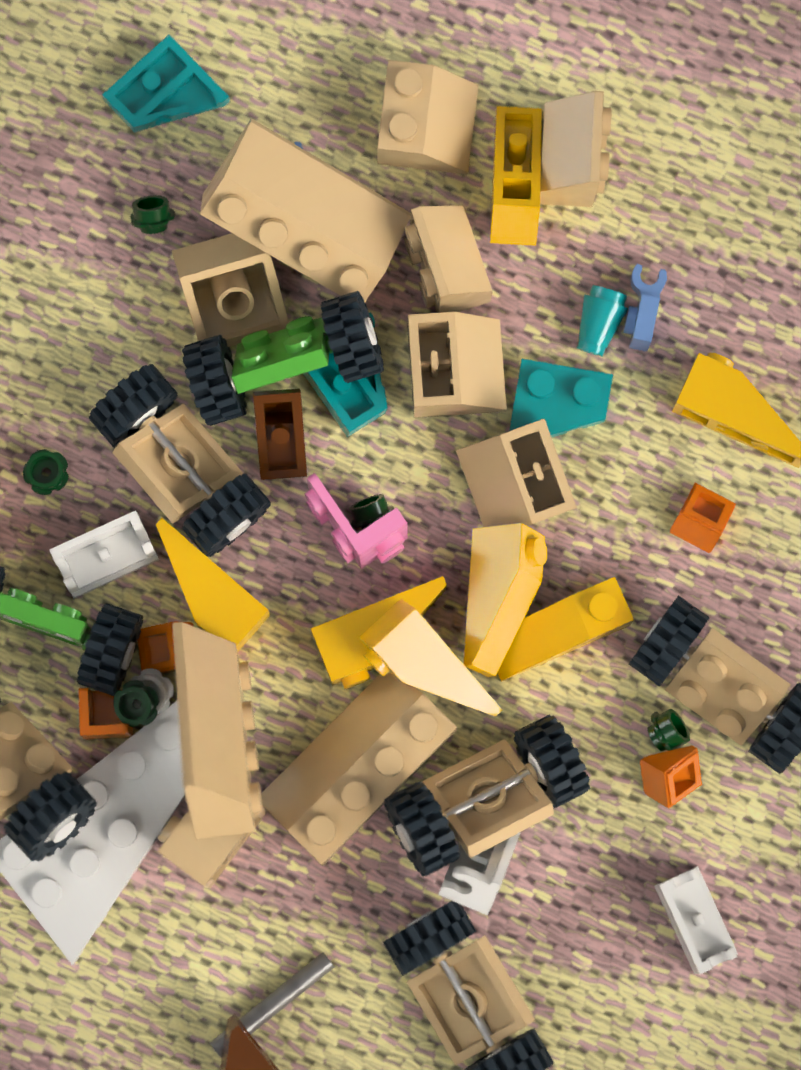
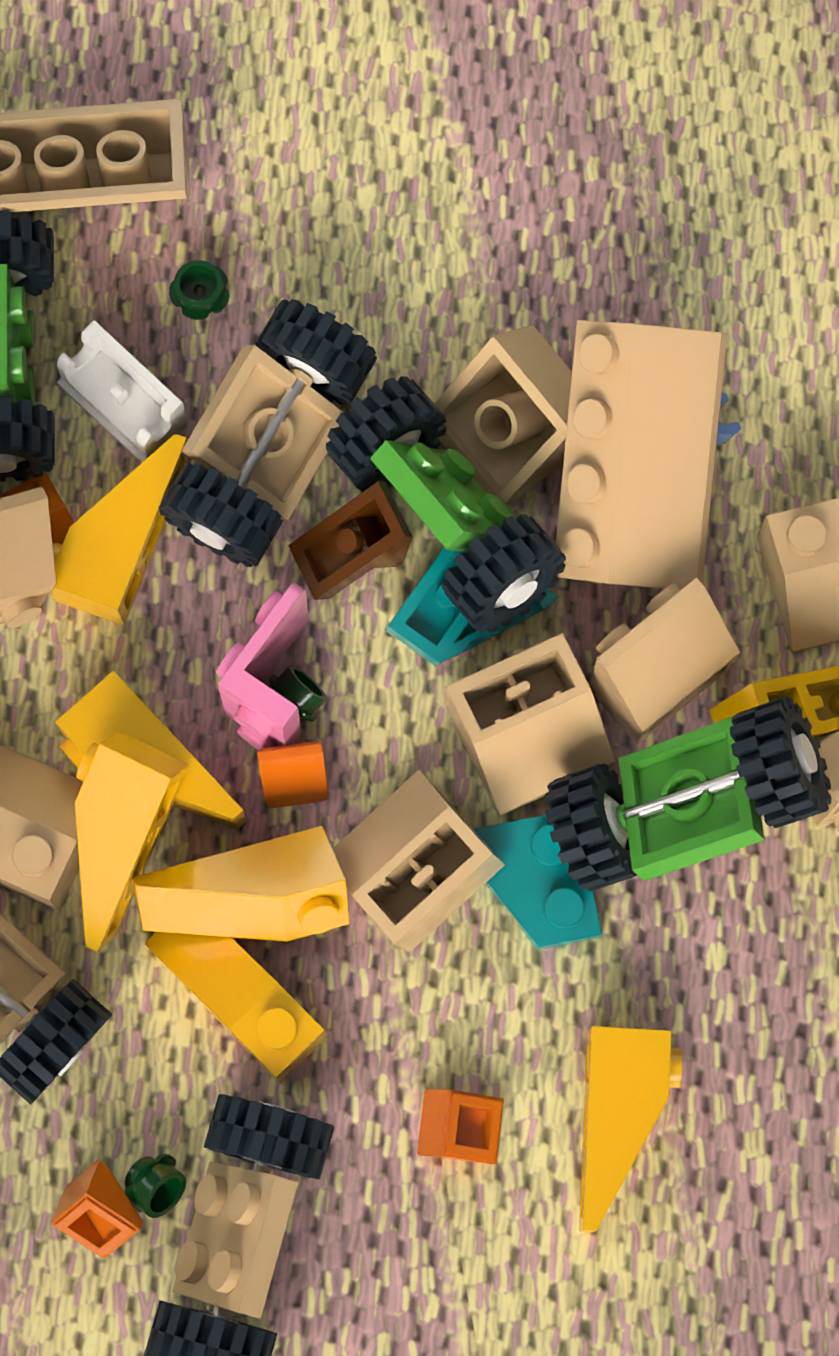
camera: 70 degrees right, 5 degrees down
(151, 214) = (571, 287): dark green plate -> none
(164, 89) = (737, 242): teal wing -> none
(425, 536) = (293, 774): none -> orange slope
(554, 276) = (689, 797): none -> plate
(600, 319) = (671, 895): teal cone -> none
(641, 319) = (688, 943): medium blue plate -> none

